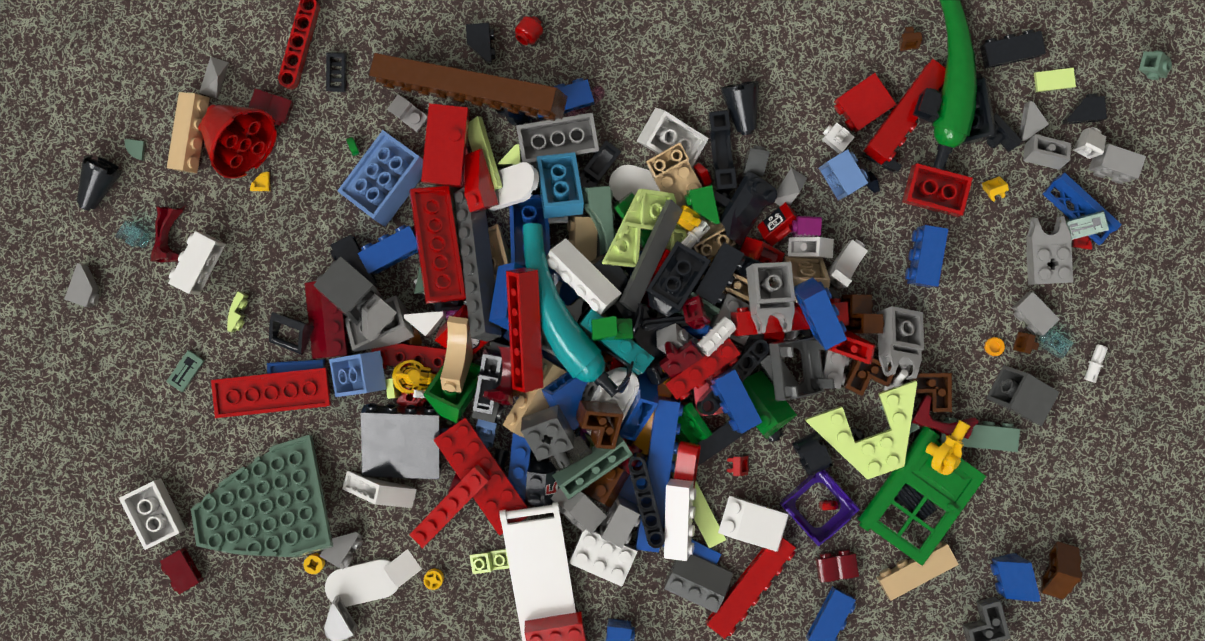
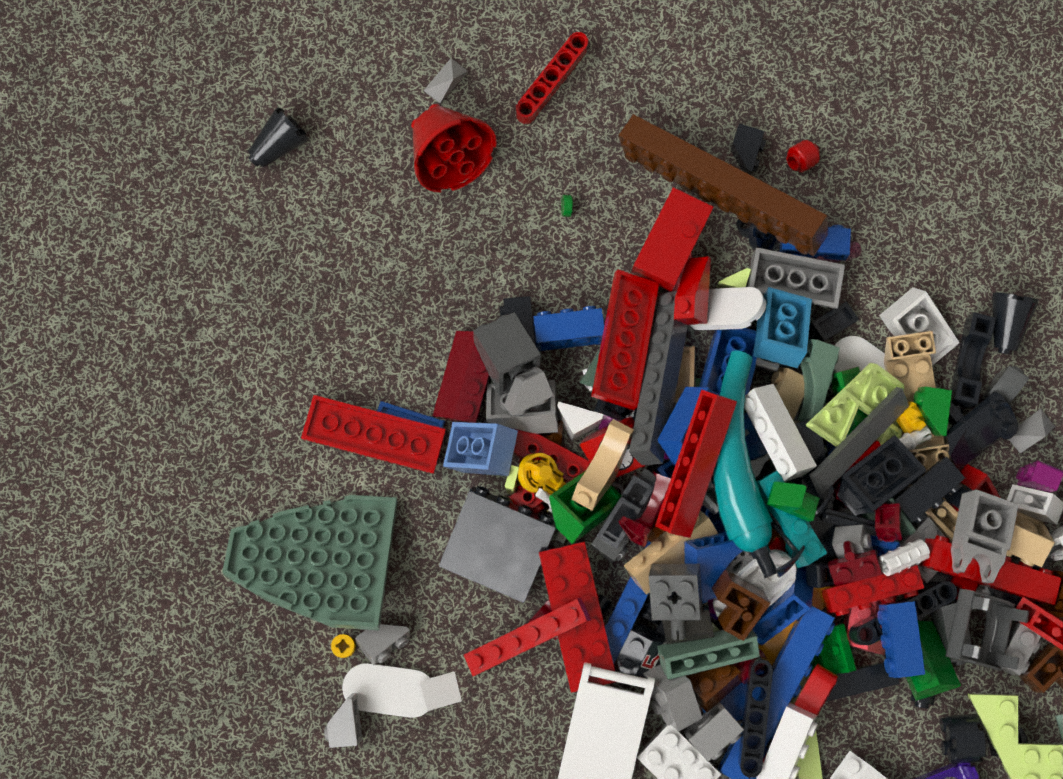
camera: 15 degrees right, 10 degrees down
(82, 287) = (214, 244): light grey slope -> none
(133, 234) = (292, 209): clear light blue brick -> none
(135, 148) = (332, 121): sand green tile -> none
(152, 513) = (187, 518): white brick -> none
(163, 223) = (315, 238): dark red animal -> none
(181, 570) = (190, 595): dark red brick -> none
(185, 371) = (287, 376): sand green tile -> none
(186, 137) = (395, 125): tan brick -> none
(196, 263) = (350, 262): white brick -> none
(235, 318) = (366, 339): yellowish green slope -> none
(261, 182) = (452, 207): yellow tile -> none
(275, 105) = (505, 132): dark red brick -> none
(304, 332) = (439, 378): black tile -> none
(329, 55) = (587, 106): black slope -> none
(379, 491) = (450, 589): white arch -> none
(383, 178) = (587, 251): medium blue slope -> none
(407, 113) = (638, 192): light grey slope -> none
(432, 582) = (470, 719): yellow wheel -> none
(479, 140) = (709, 246): yellowish green tile -> none
(486, 431) = (600, 567): medium blue slope -> none
(489, 561) = (545, 722): yellowish green slope -> none
(703, 174) = (941, 377): red tile -> none
(740, 465) = (871, 722): red tile -> none
(777, 224) = (1006, 464): red piece -> none
(820, 313) = (1033, 575): blue brick -> none

